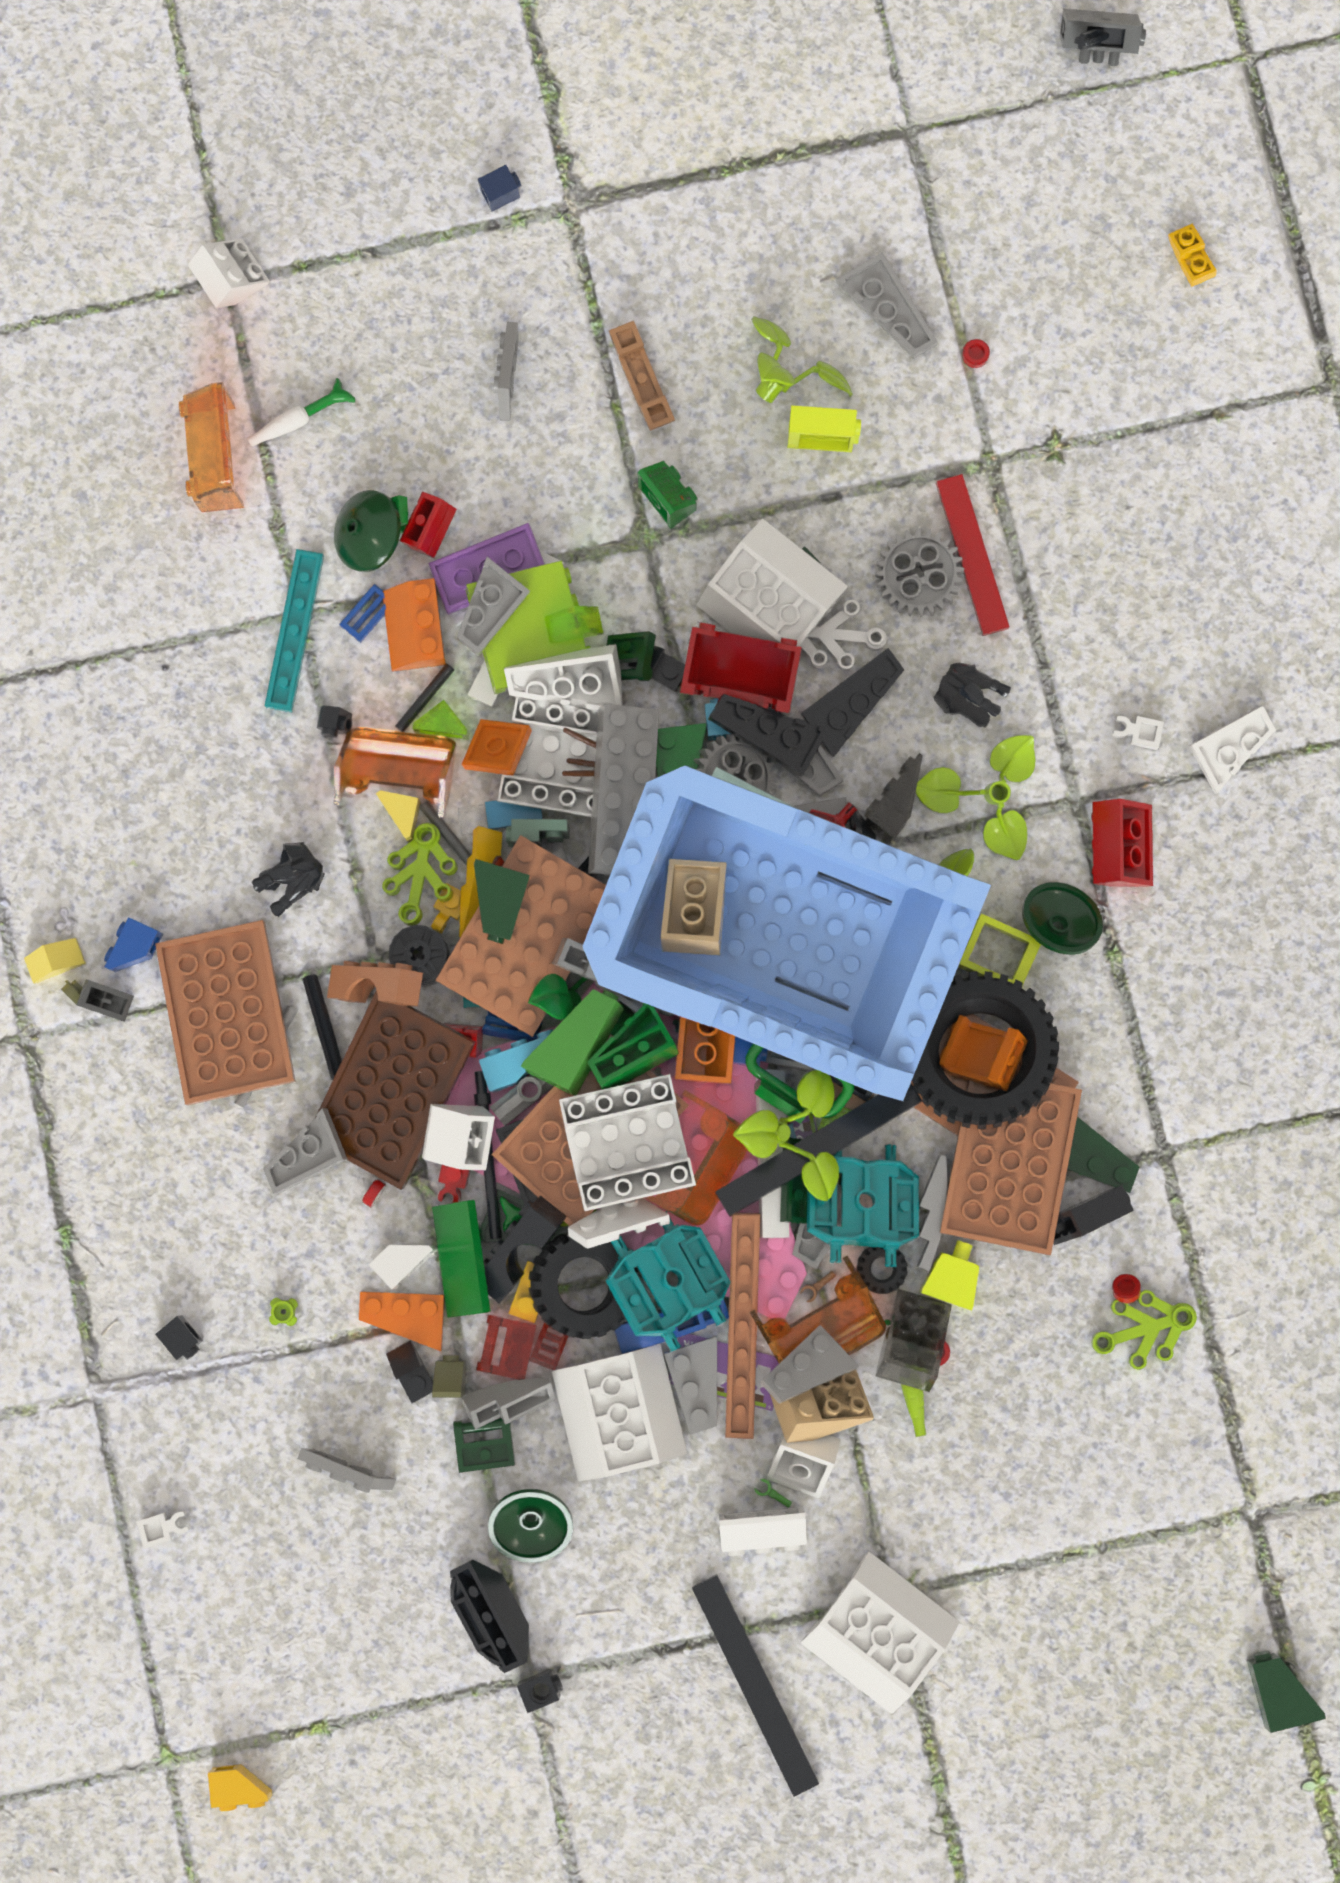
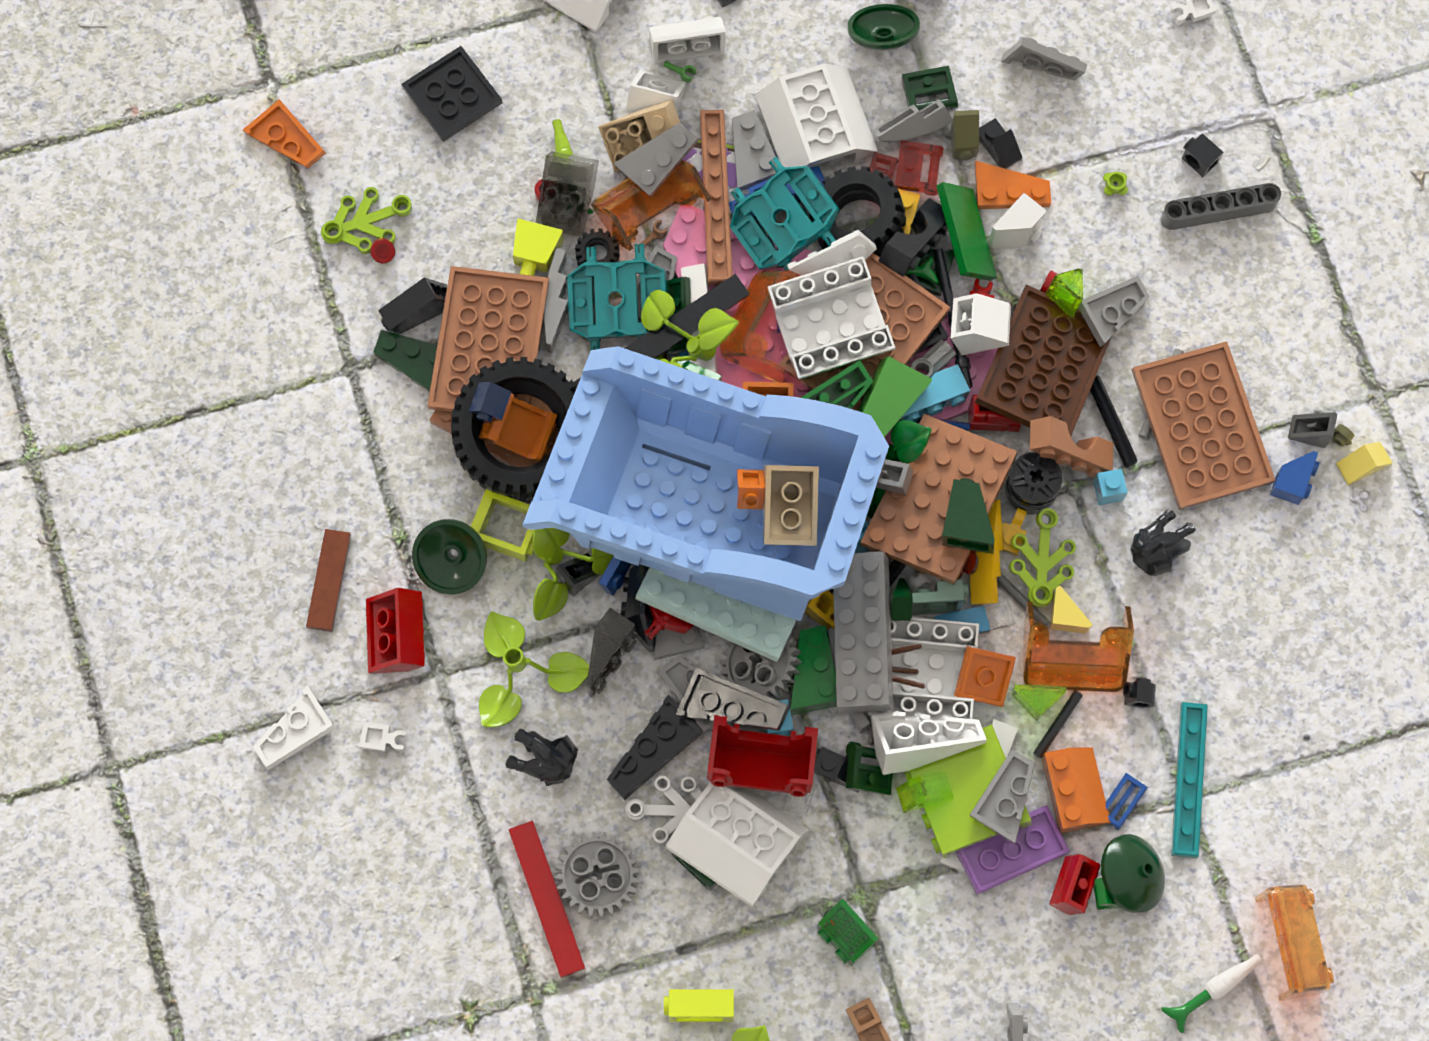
camera: 170 degrees right, 10 degrees down
(154, 1272) = (1228, 198): none -> dark grey beam
(336, 948) = (1110, 487): none -> medium azure brick
(354, 1175) = (1067, 290): none -> clear neon green slope
(577, 827) = (901, 602): none -> dark green slope
(736, 928) = (750, 489): none -> orange bracket
(1016, 1065) = (489, 402): none -> dark blue brick
(1041, 1481) = (452, 93): none -> black plate
(1193, 909) = (328, 580): none -> copper tile
(1236, 1444) = (285, 134): none -> orange wing

